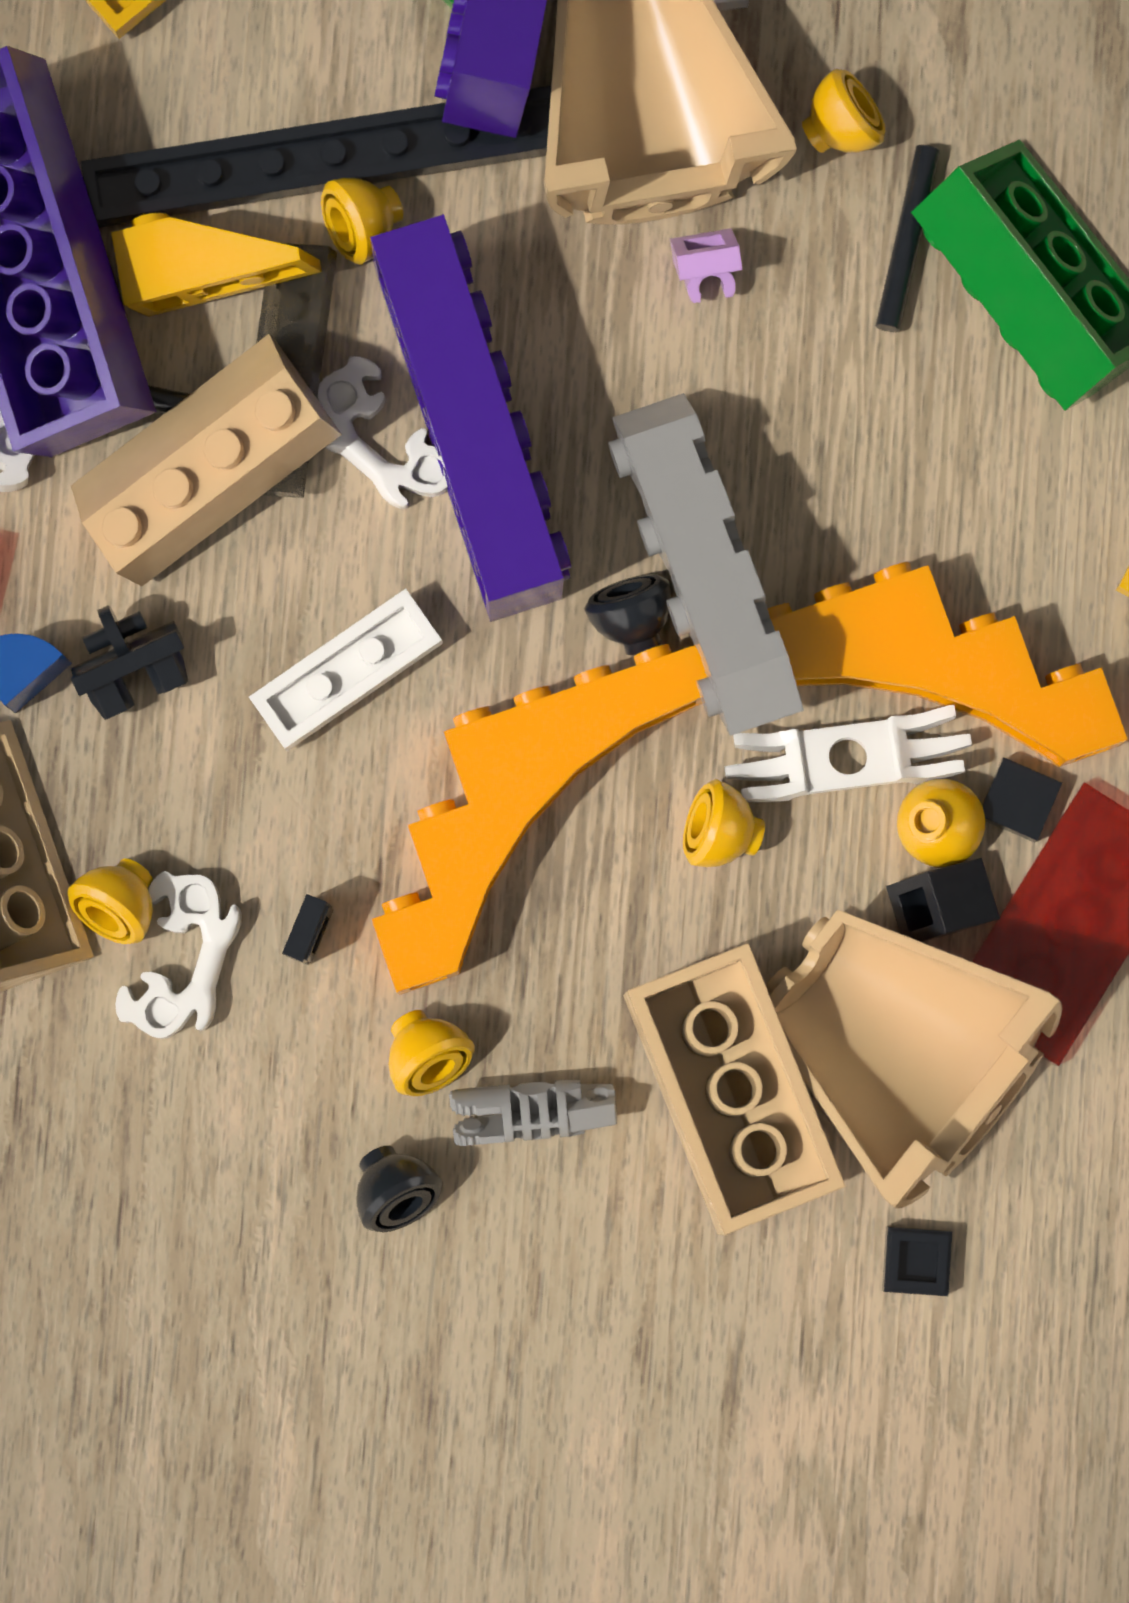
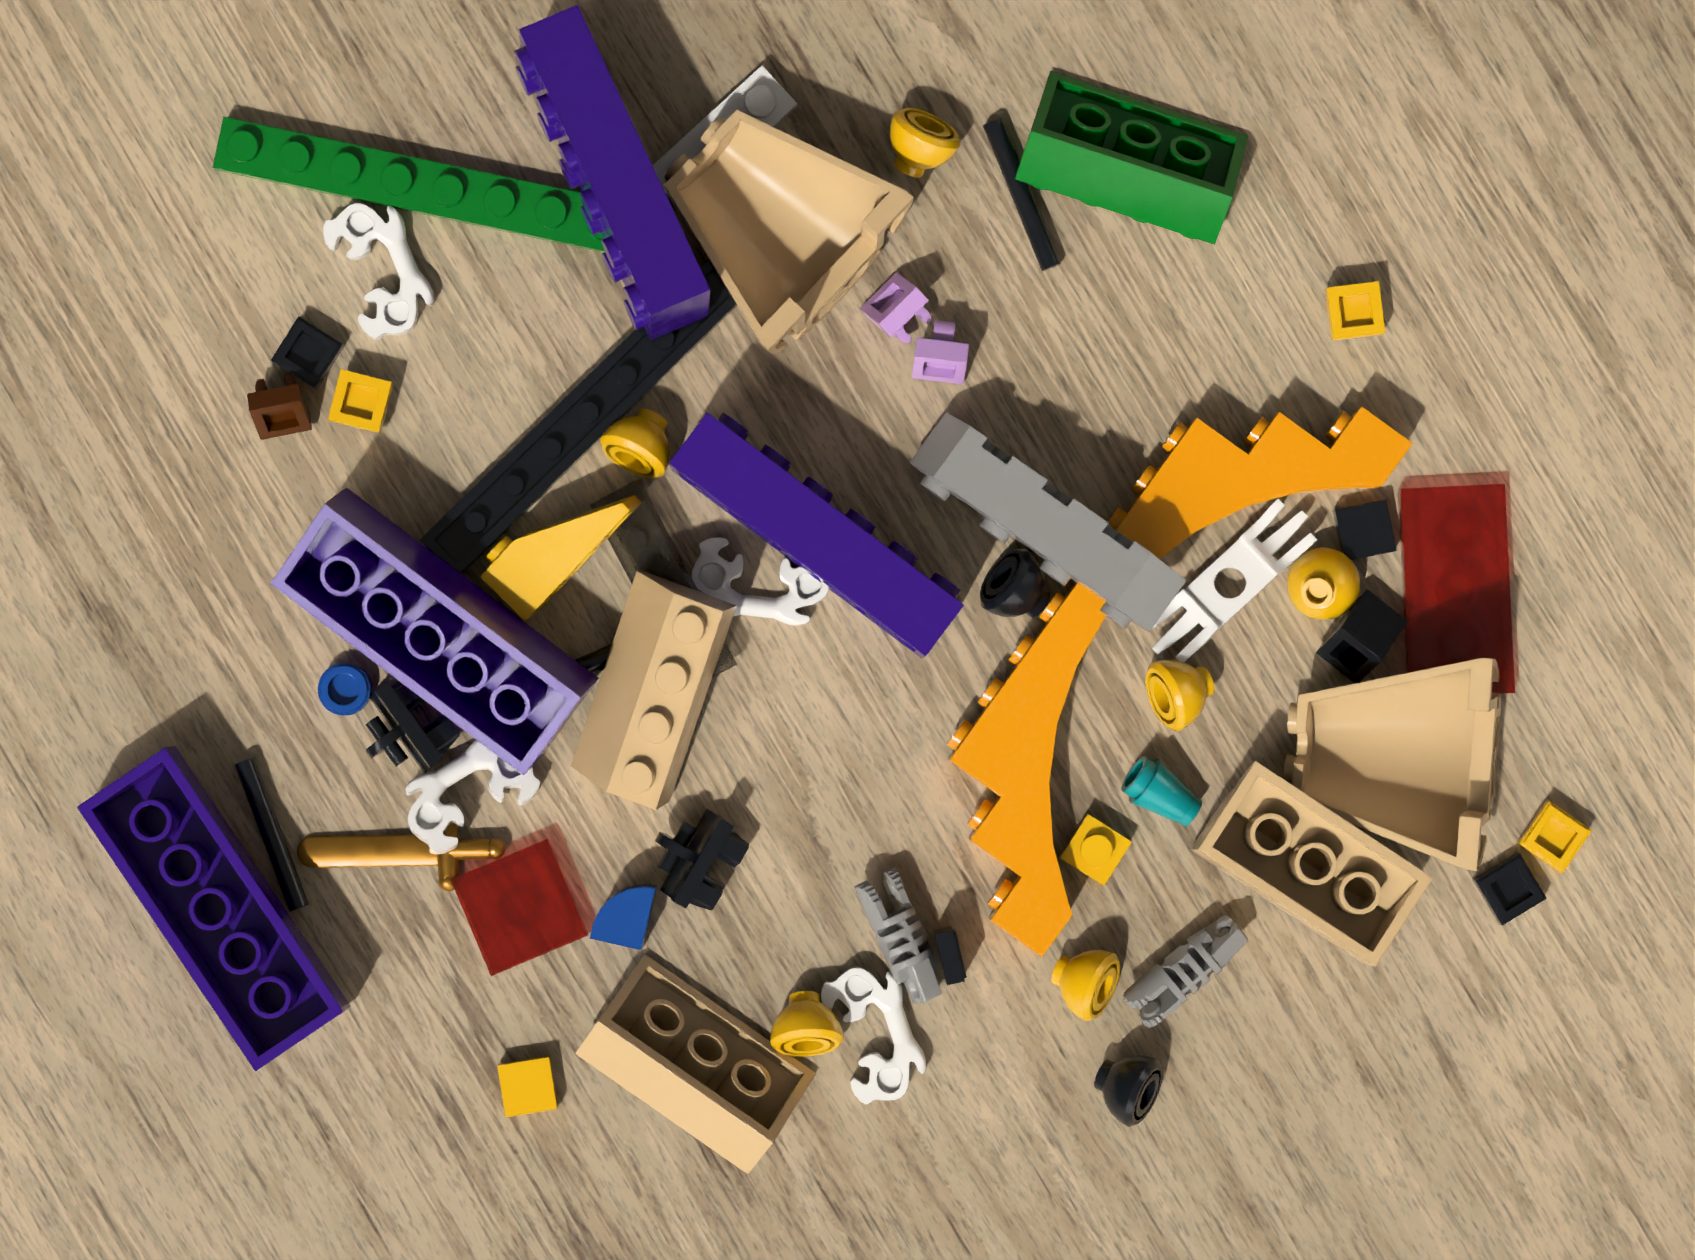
camera: 40 degrees left, 5 degrees up
(273, 879) = (901, 937): none -> light grey hinge
(346, 669) = (849, 761): white plate -> none
(528, 928) = (1095, 849): none -> yellow plate
(633, 915) = (1160, 791): none -> teal cone
(716, 336) = (940, 357): none -> lavender tile
(999, 1240) = (1554, 836): none -> yellow tile

